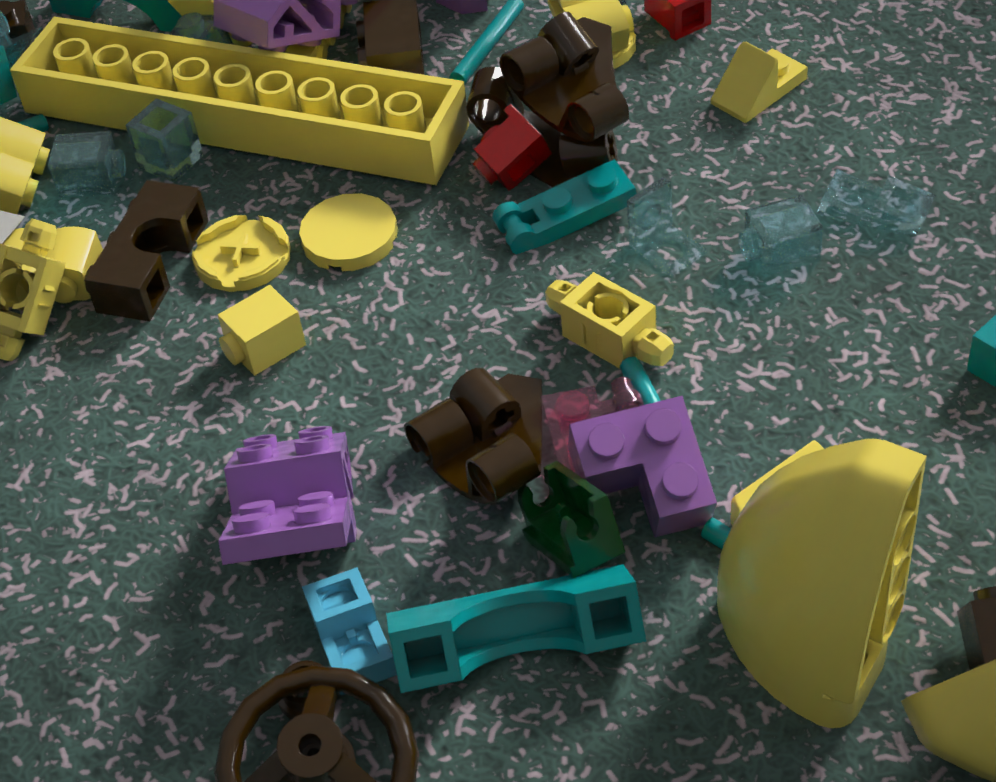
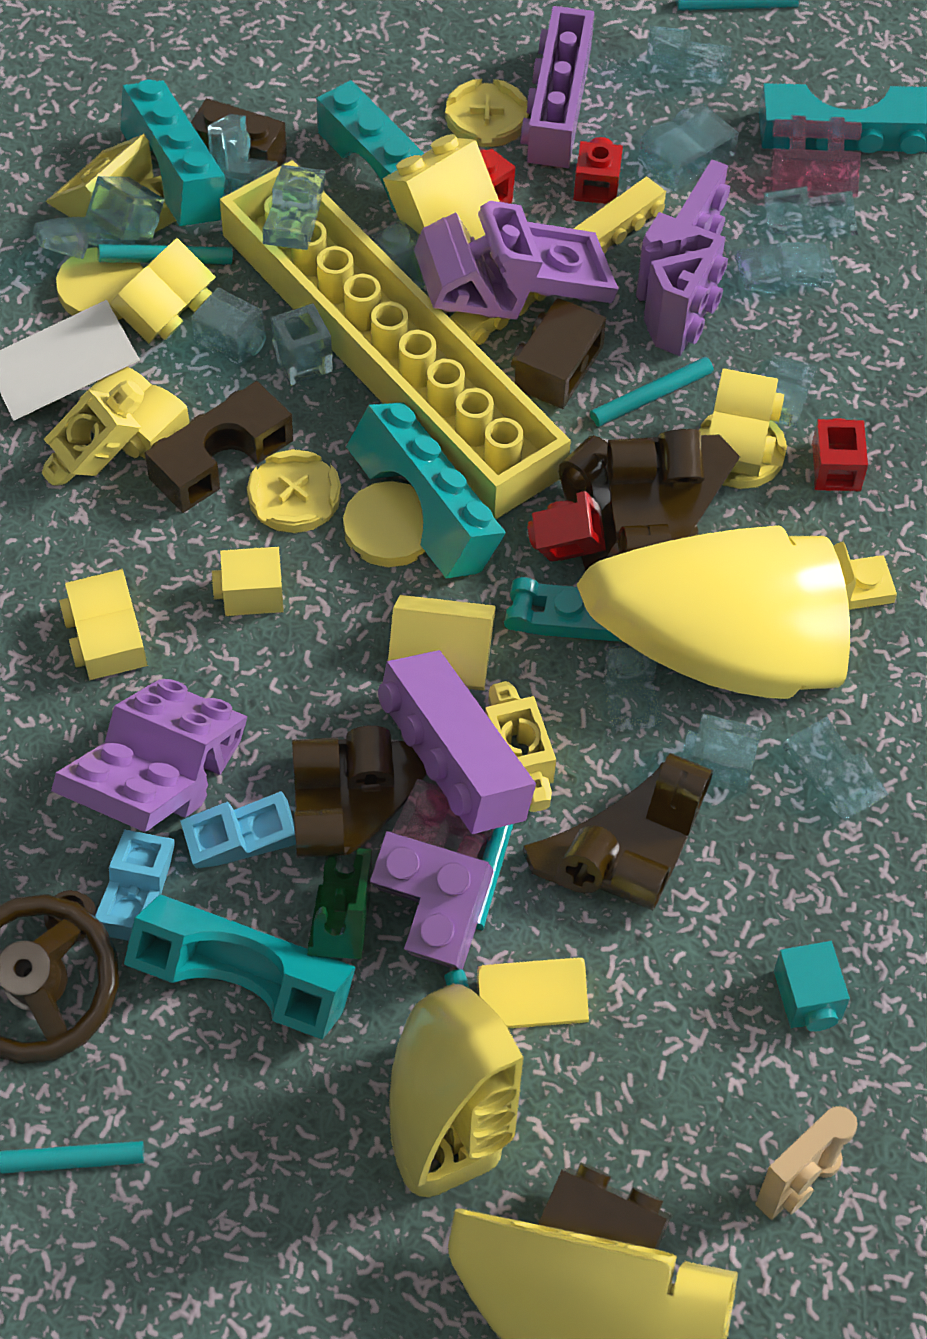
camera: 25 degrees right, 10 degrees up
(85, 40) = (294, 207): none -> clear light blue slope
(148, 434) = (104, 624): none -> light yellow brick
(405, 537) = (232, 835): none -> medium azure slope
(416, 195) = (456, 524): none -> teal arch
(471, 290) = (453, 627): none -> light yellow slope
(559, 339) = (456, 742): none -> medium lavender brick
(702, 121) = (730, 609): none -> light yellow panel
(763, 335) = (631, 843): none -> dark brown panel

